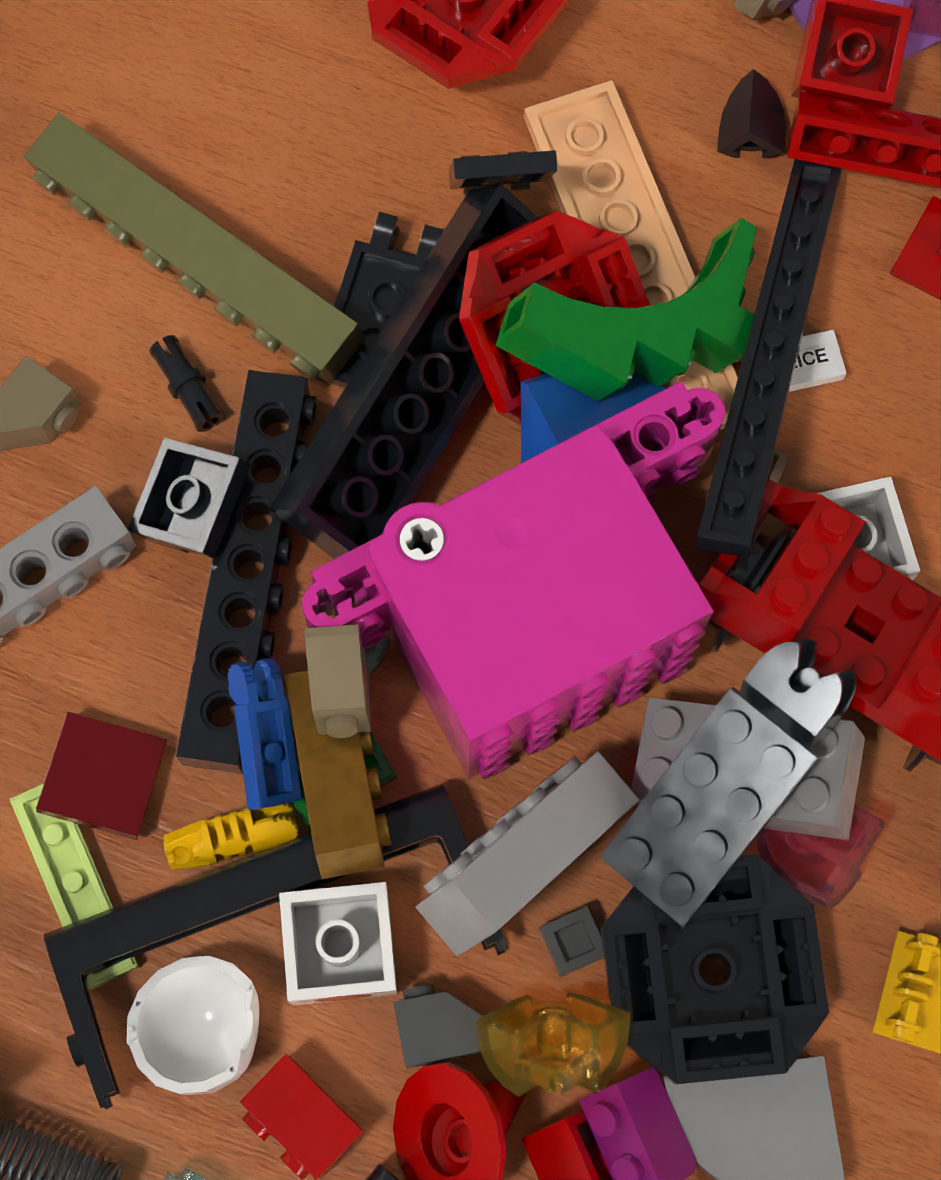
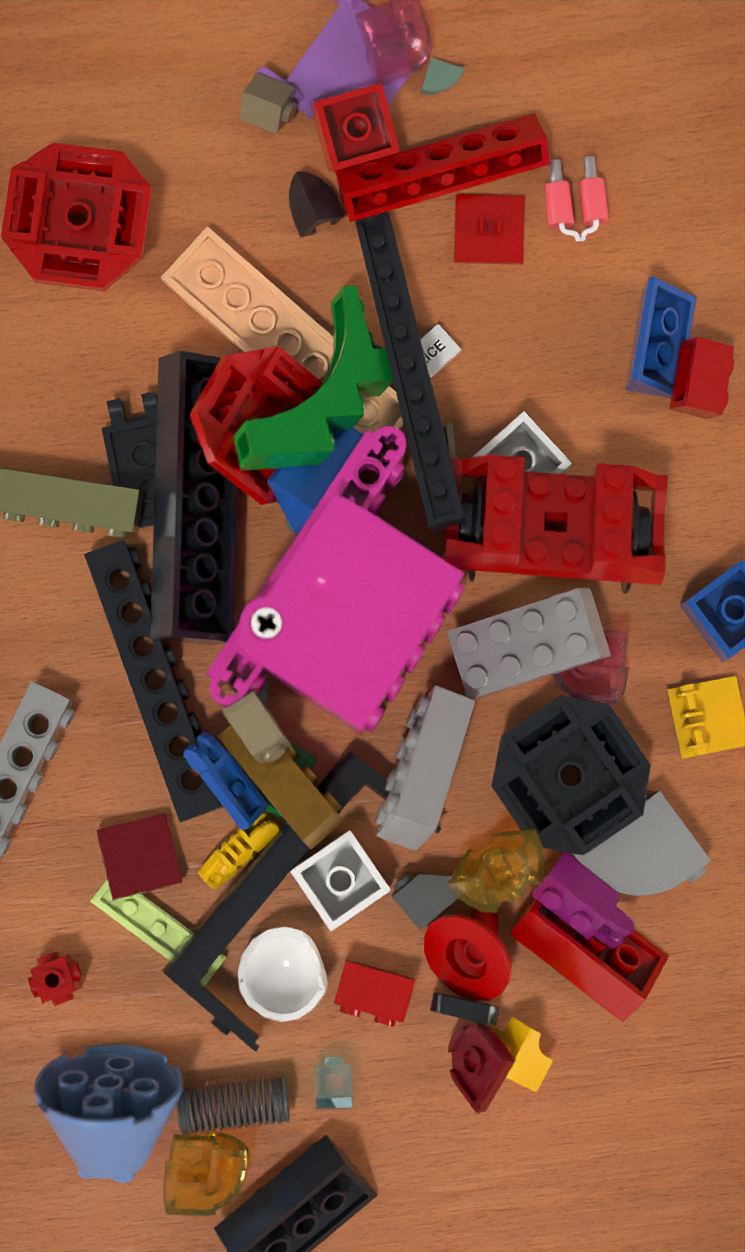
camera: 30 degrees left, 10 degrees up
(186, 383) = (46, 580): black pin -> none
(189, 498) = (94, 658): plate -> none
(511, 169) = (174, 341): black tile -> none
(573, 941) = (478, 801): dark grey plate -> none
(730, 779) = (524, 663): hinge -> none

